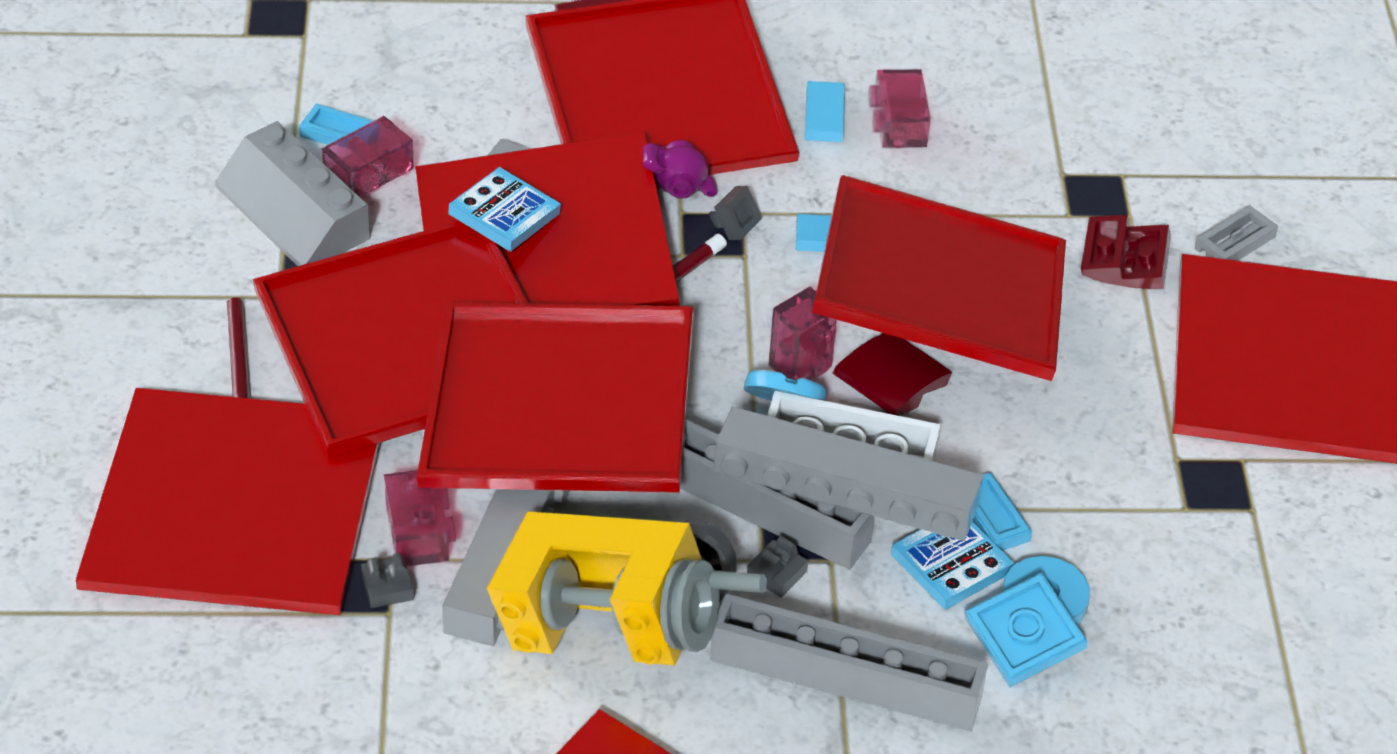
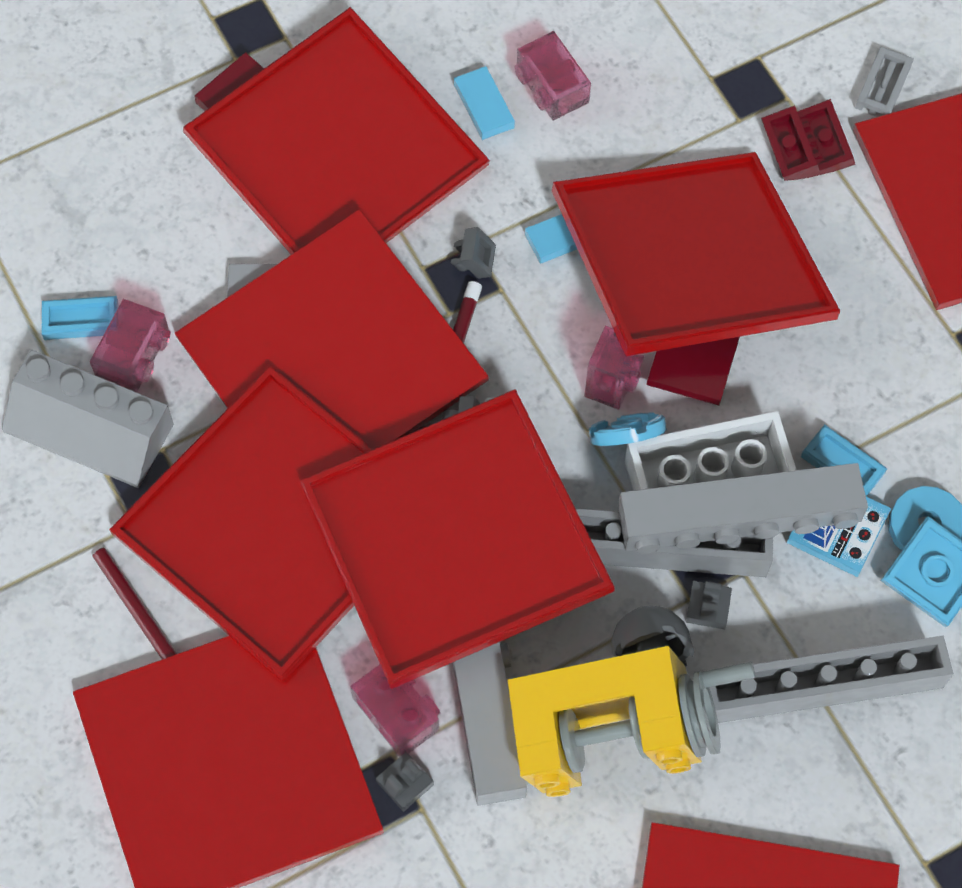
camera: 25 degrees left, 20 degrees up
(504, 209) = (289, 353): tile -> none
(679, 169) = (406, 232): magenta piece -> none

